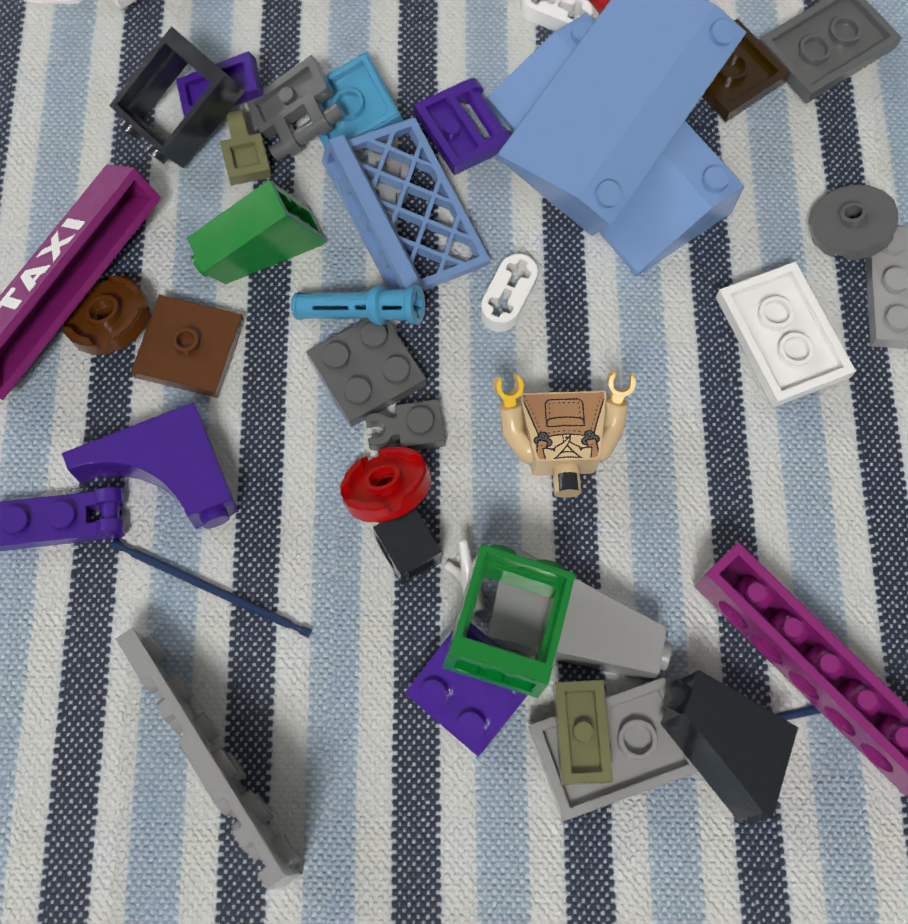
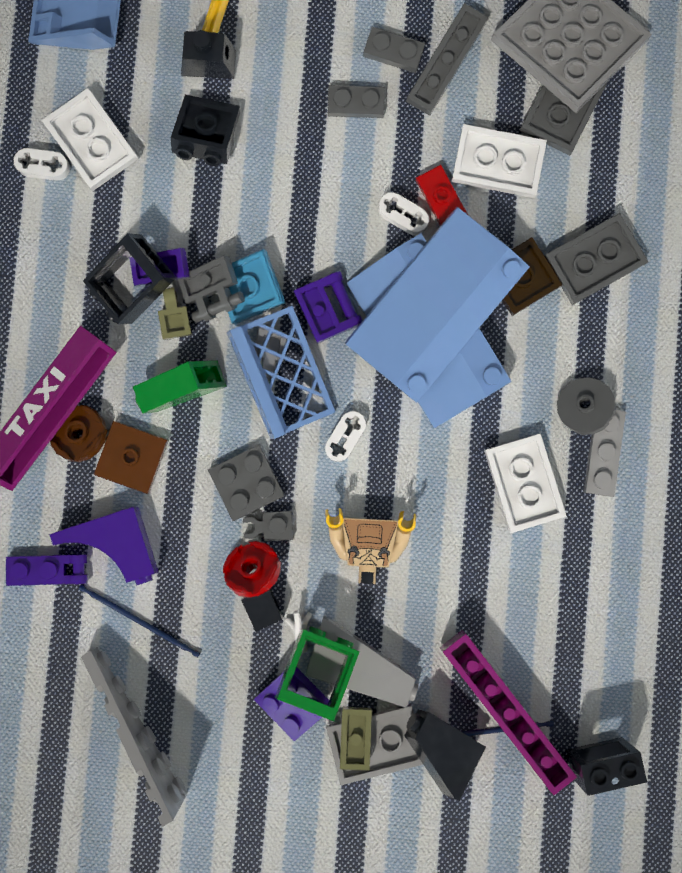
camera: 10 degrees right, 15 degrees up
(377, 305) = (255, 447): dark azure pin -> none

